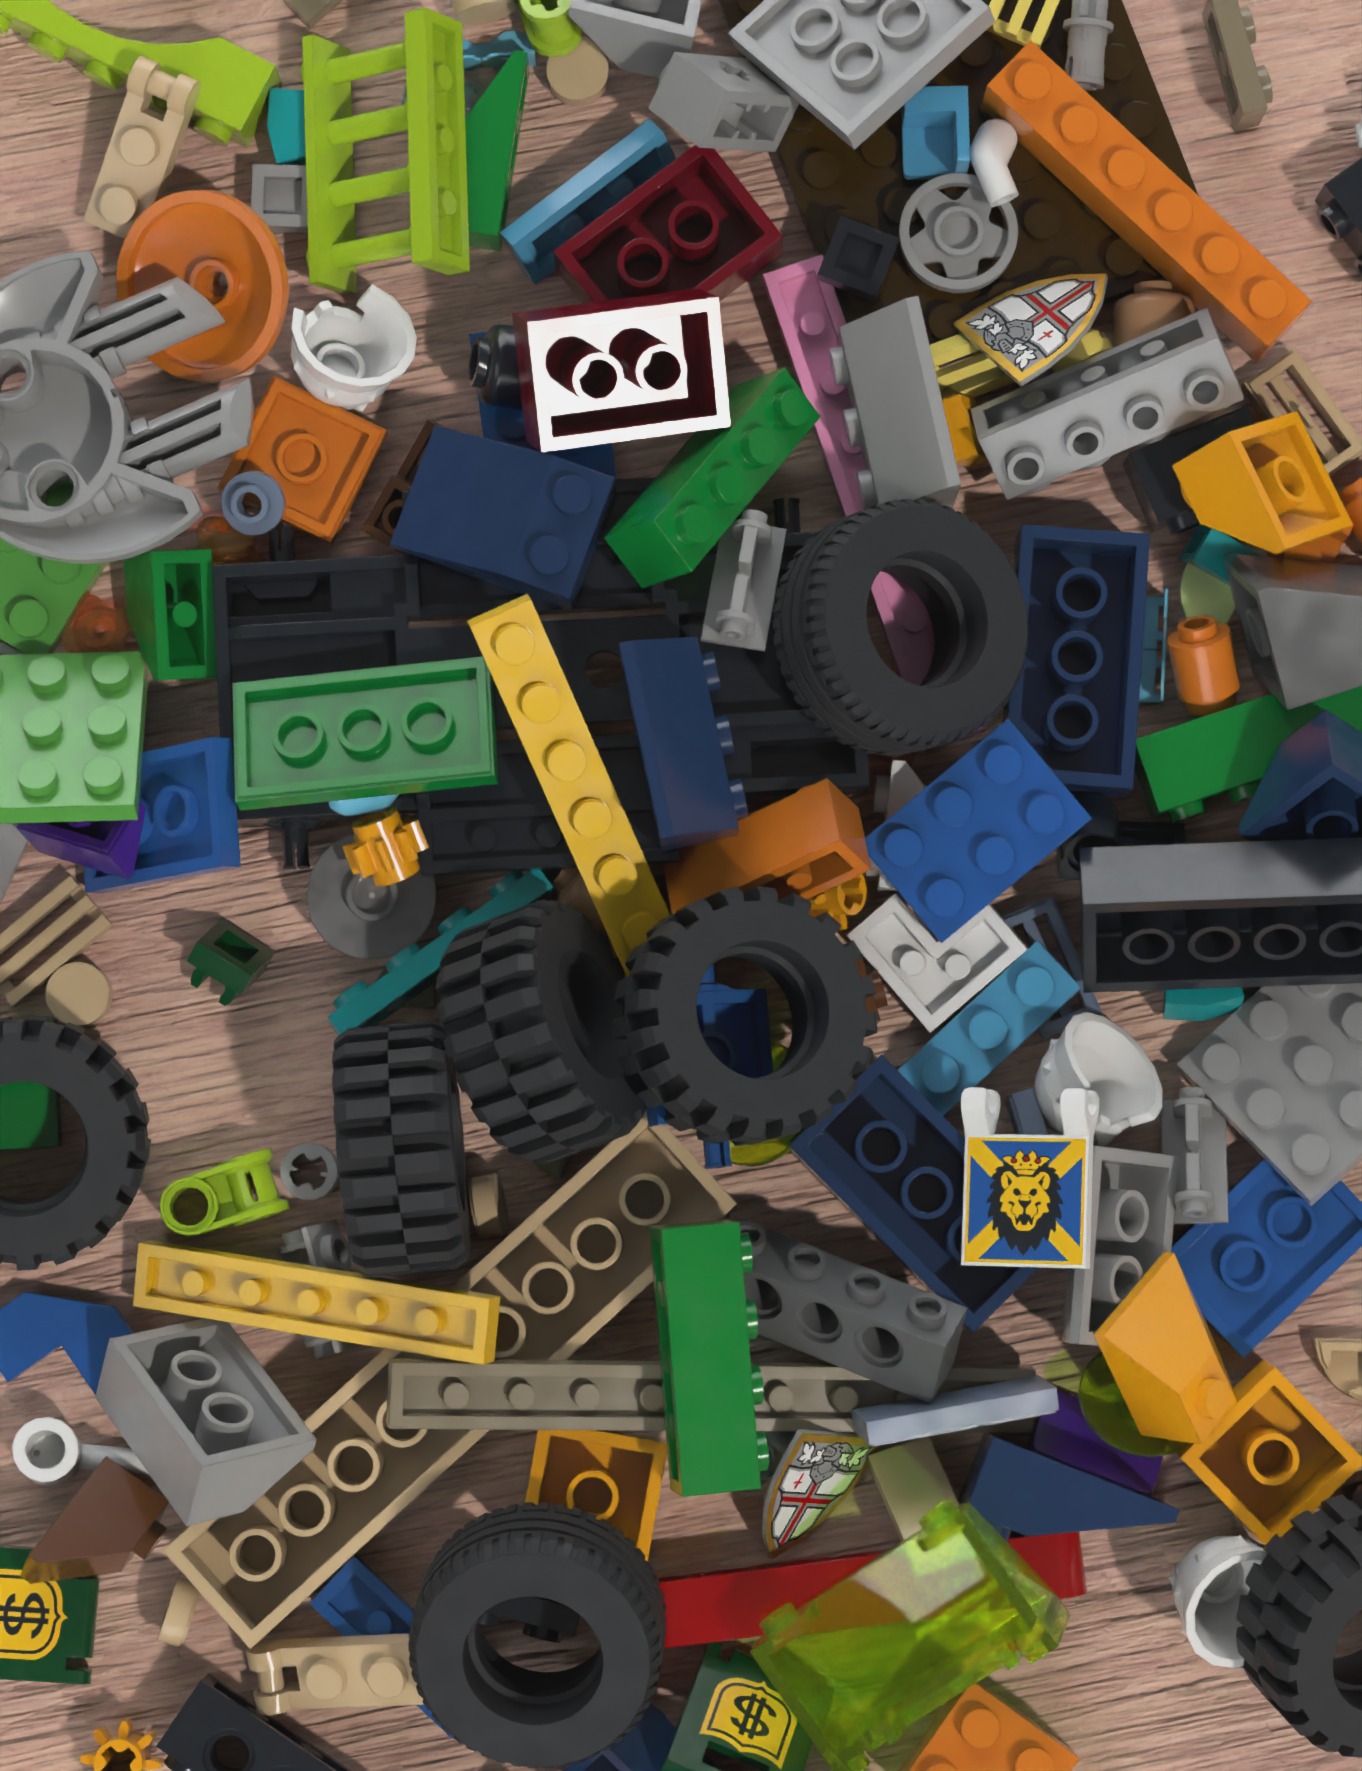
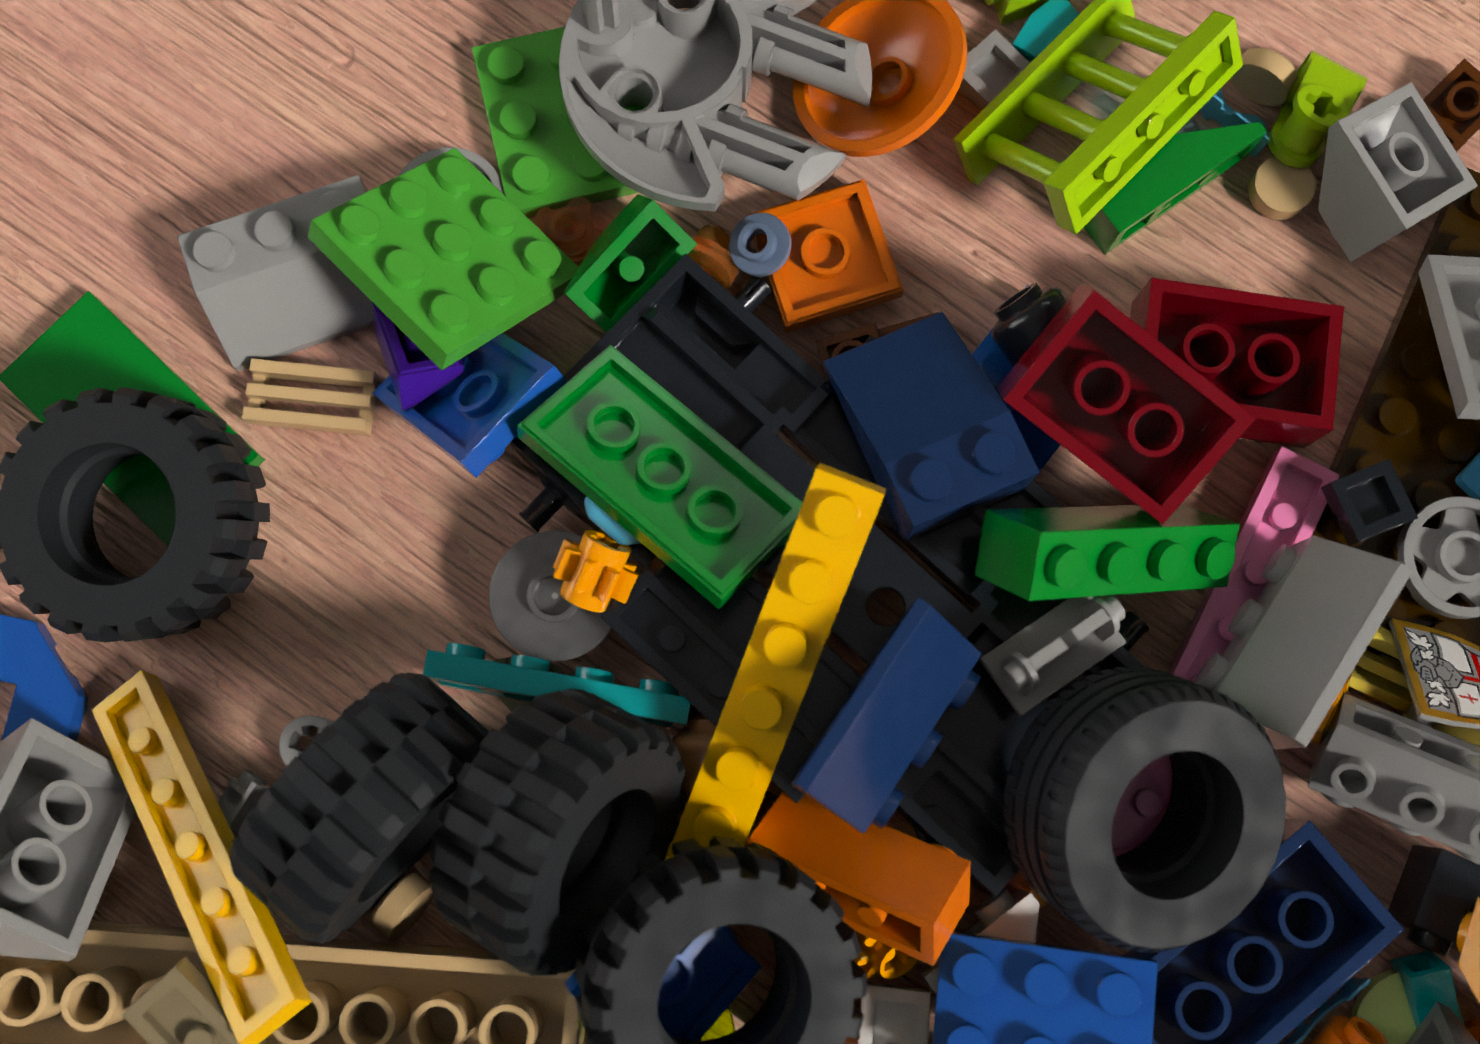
camera: 45 degrees right, 5 degrees down
(79, 994) = (294, 457): tan tile -> none
(227, 1194) = (241, 706): lime piece -> none
(228, 958) = (415, 537): dark green tile -> none
(352, 356) = (927, 212): white helmet -> none
(586, 198) = (1147, 258): dark azure plate -> none
(723, 102) = (1380, 296): light grey brick -> none

